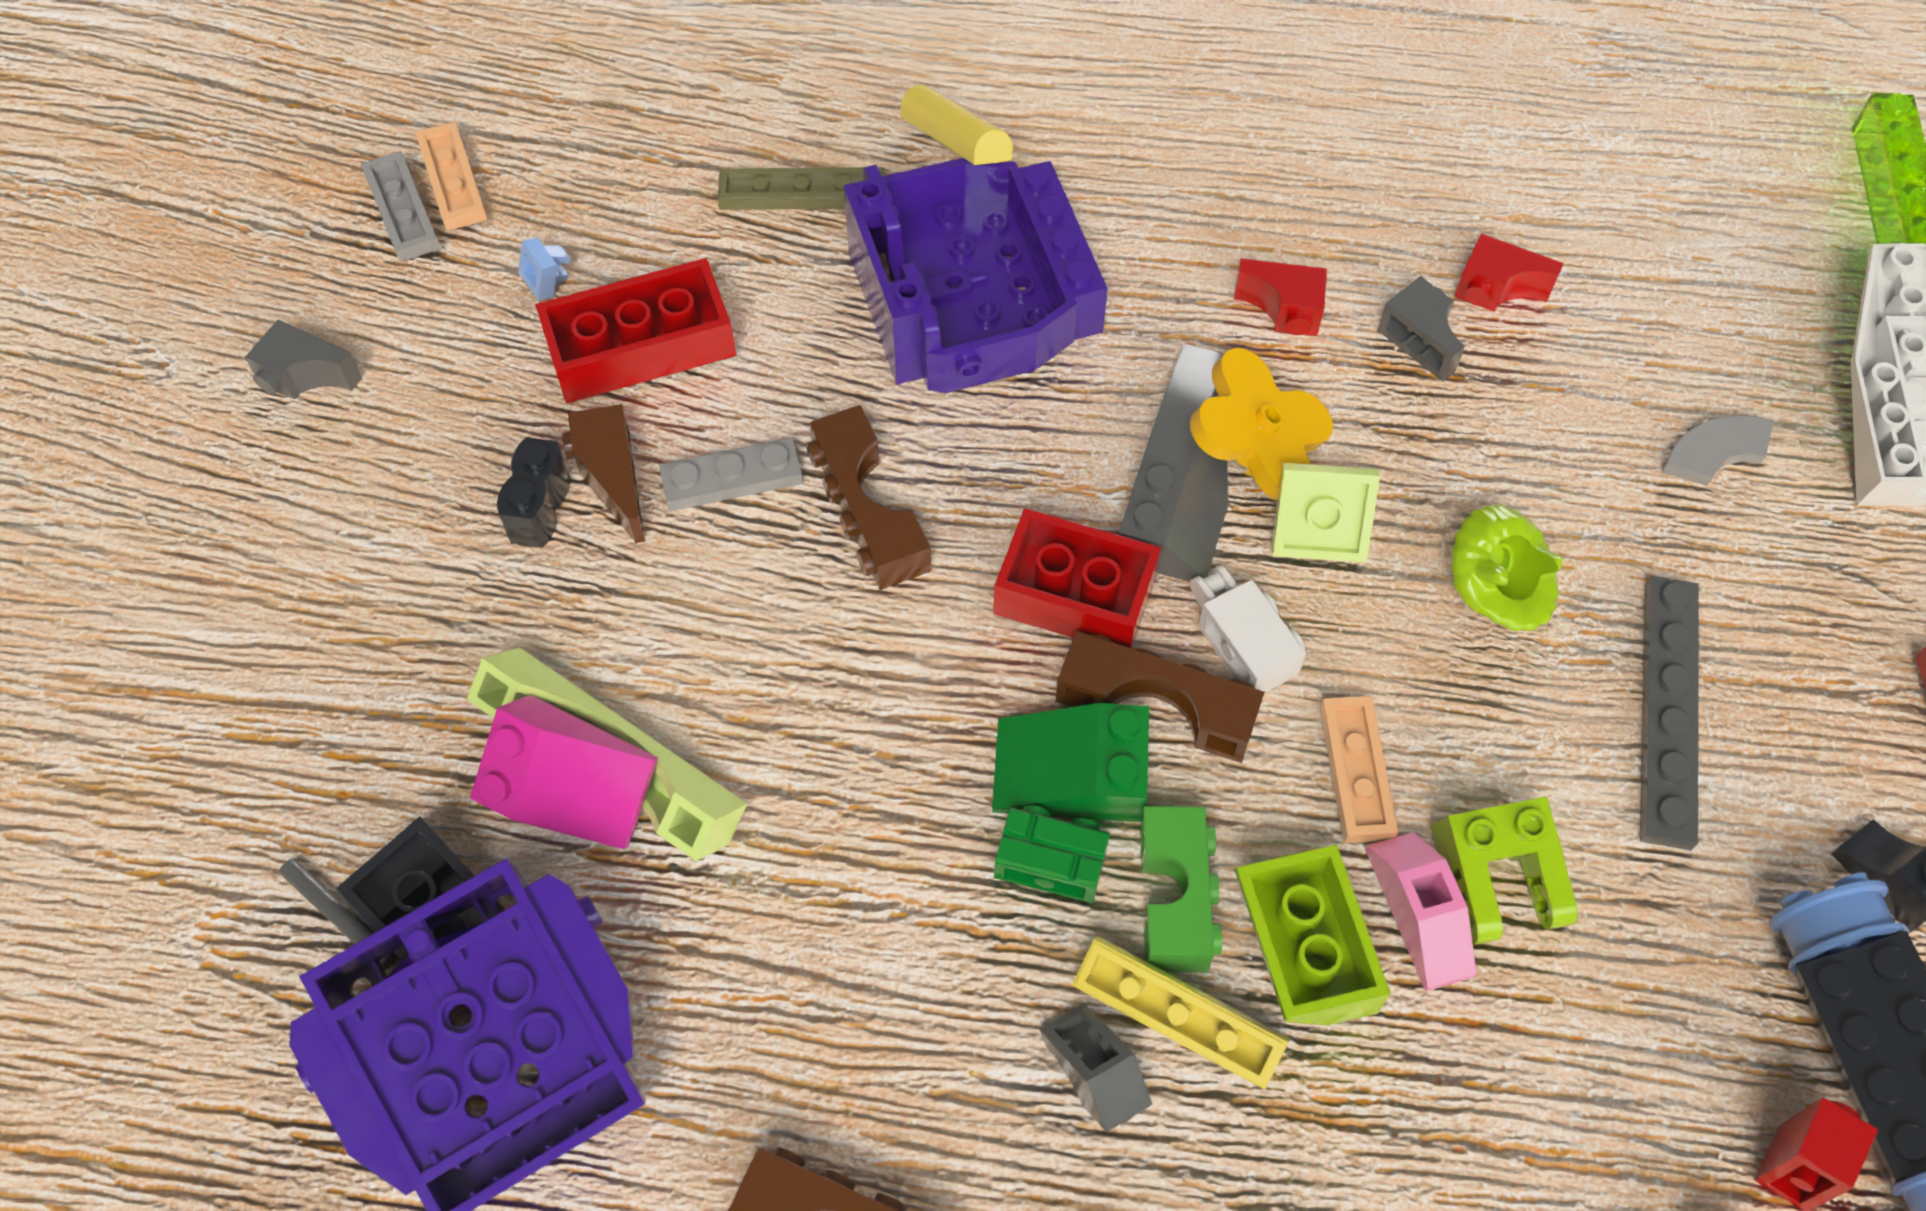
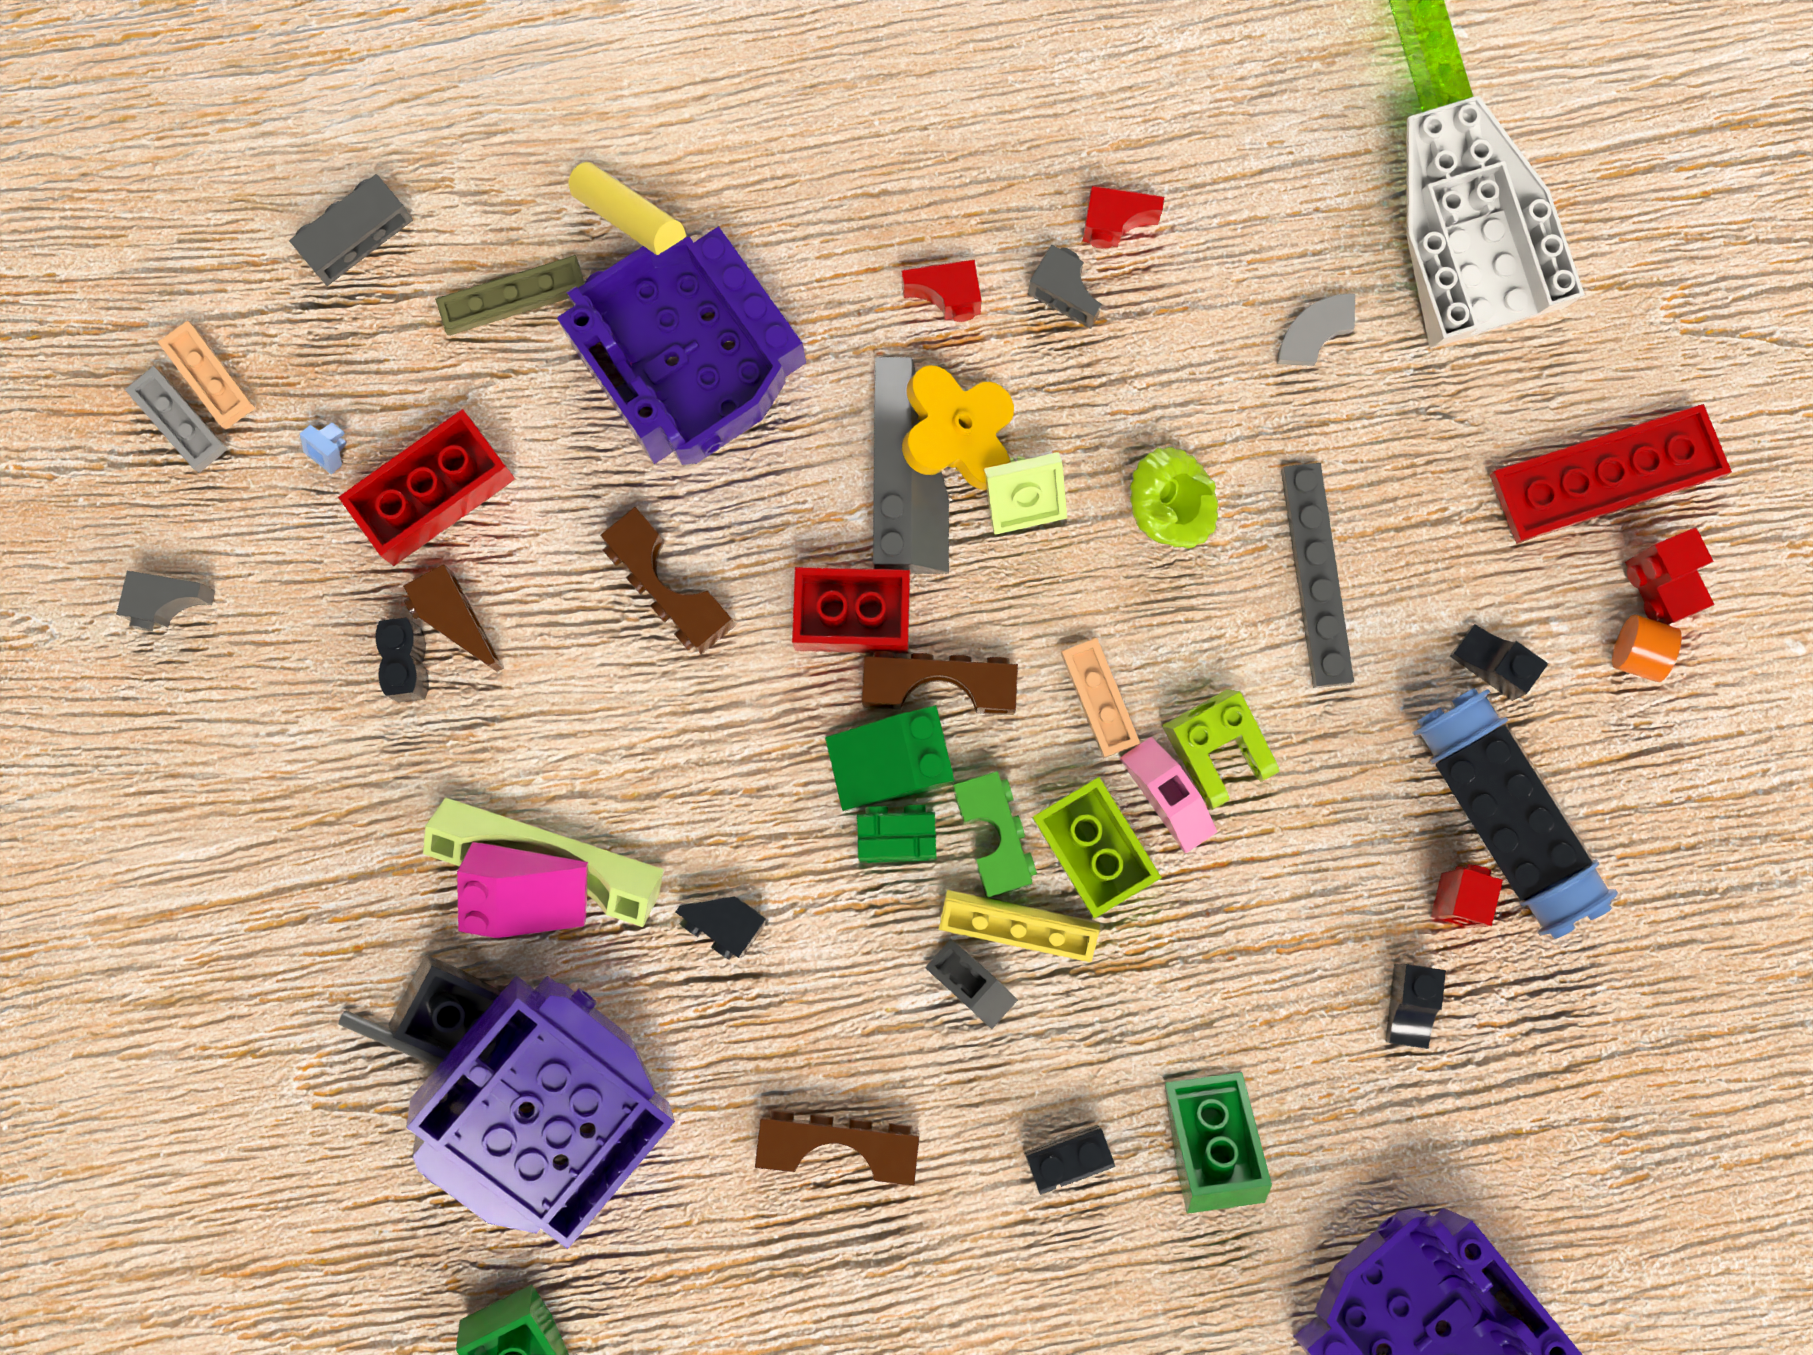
camera: 15 degrees left, 20 degrees up
(658, 87) = (351, 229): none -> dark grey brick
(730, 474) = (550, 590): light grey plate -> none
(803, 891) = (726, 921): none -> black slope
(1247, 631) = (991, 609): white brick -> none

